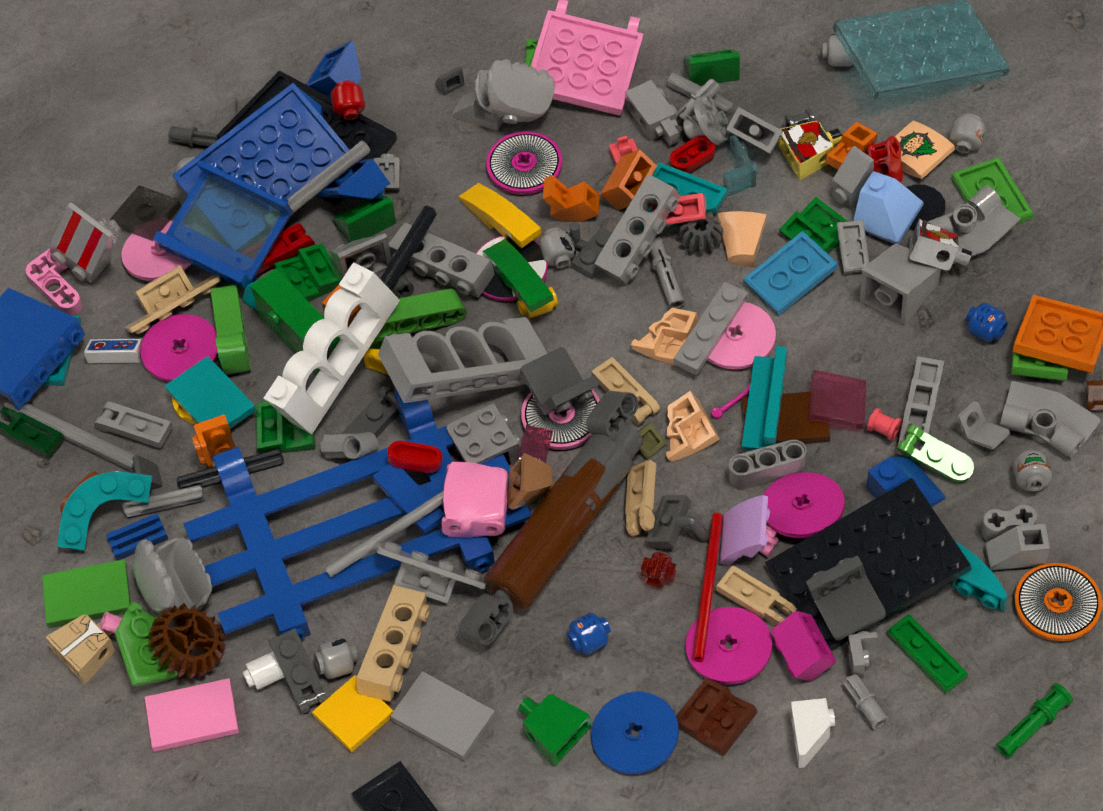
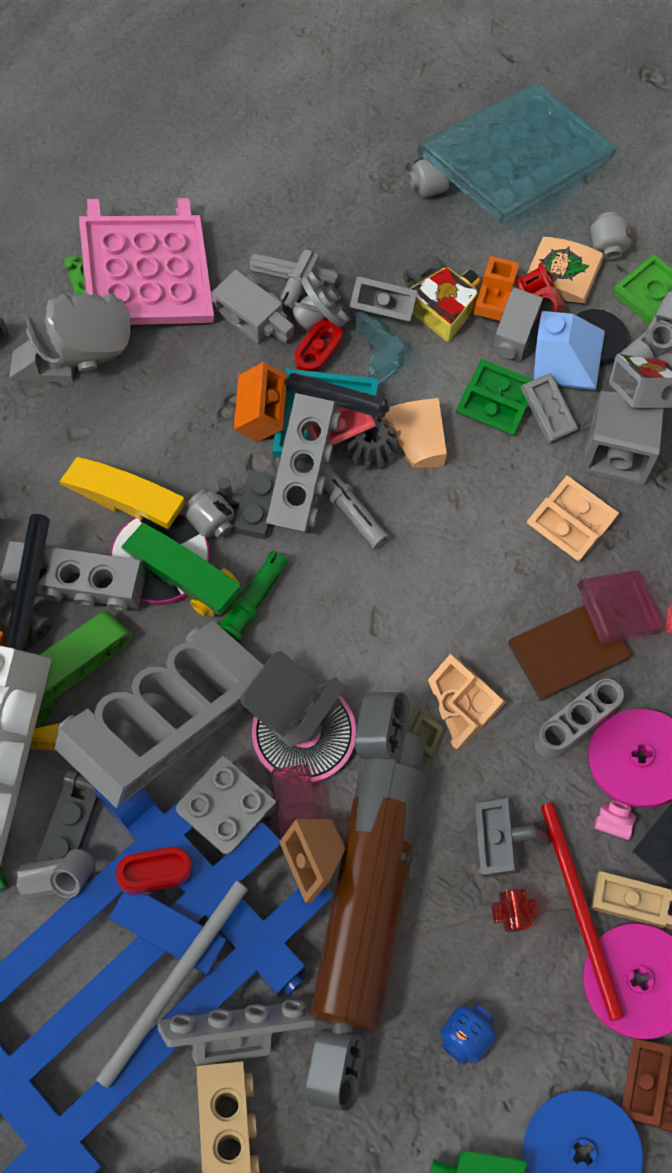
camera: 30 degrees left, 10 degrees up
(474, 500) = (260, 909): bright pink piece -> none
(522, 179) = (130, 435): piece -> none
(554, 319) = (244, 609): none -> green pin
(571, 203) = (204, 450): orange brick -> none
(615, 378) = (363, 671): tan plate -> none
(621, 148) = (233, 364): coral tile -> none
(640, 498) = (450, 817): tan hinge -> none
(666, 335) = (390, 589): light nougat slope -> none
(684, 187) = (340, 395): none -> black axle
(710, 328) = (436, 563): light grey plate -> none
(716, 65) = (295, 232): green slope -> none
(717, 412) = (486, 666): dark pink hinge -> none
(744, 529) = (597, 821): lavender slope -> none
(755, 339) = (440, 562): bright pink piece -> none
(764, 400) = (543, 638): teal panel -> none
(790, 273) = (493, 462): dark azure tile -> none
(833, 331) = (572, 518): none -> light nougat slope

